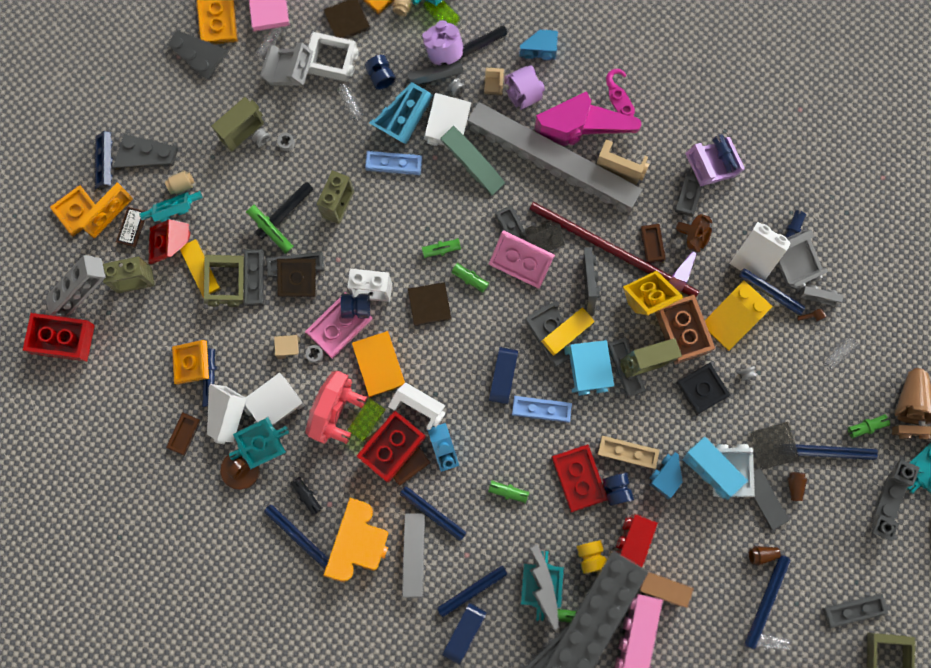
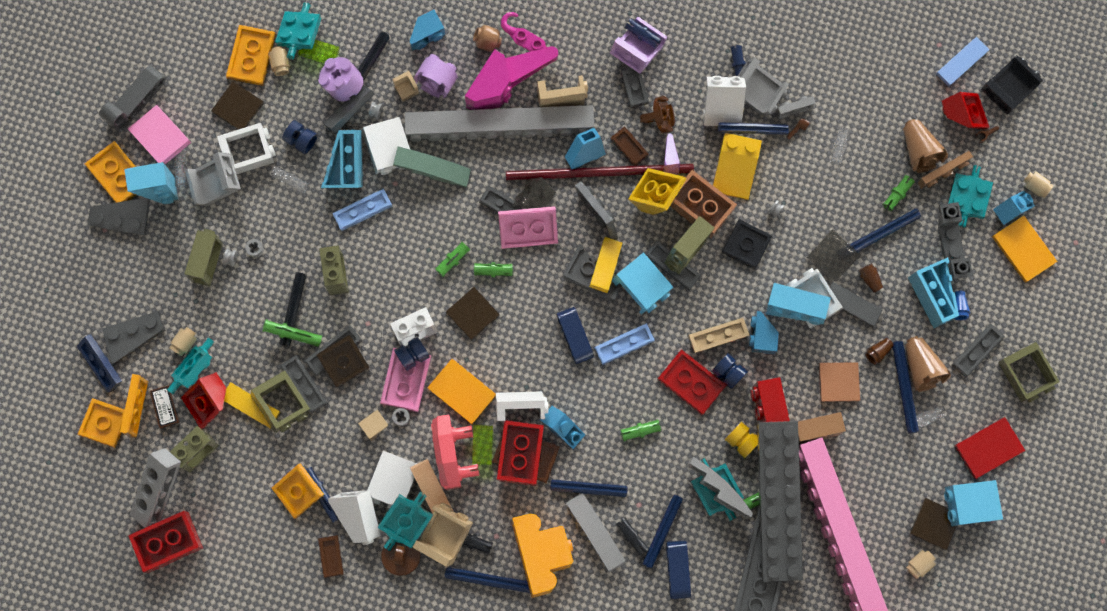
camera: 40 degrees left, 0 degrees up
(235, 37) = (152, 182): none -> medium azure wedge
(284, 475) = (444, 535): none -> tan panel
(298, 440) = (429, 484): none -> light nougat tile
(443, 579) = (632, 536): none -> black pin
(588, 81) = (487, 38): none -> medium nougat head
(612, 222) = (585, 148): none -> dark azure slope
(710, 559) = (839, 382): none -> nougat tile
(797, 593) = (925, 365): none -> medium nougat cone
(848, 534) = (935, 292): none -> medium azure wedge
(862, 562) = (962, 305): none -> blue cone

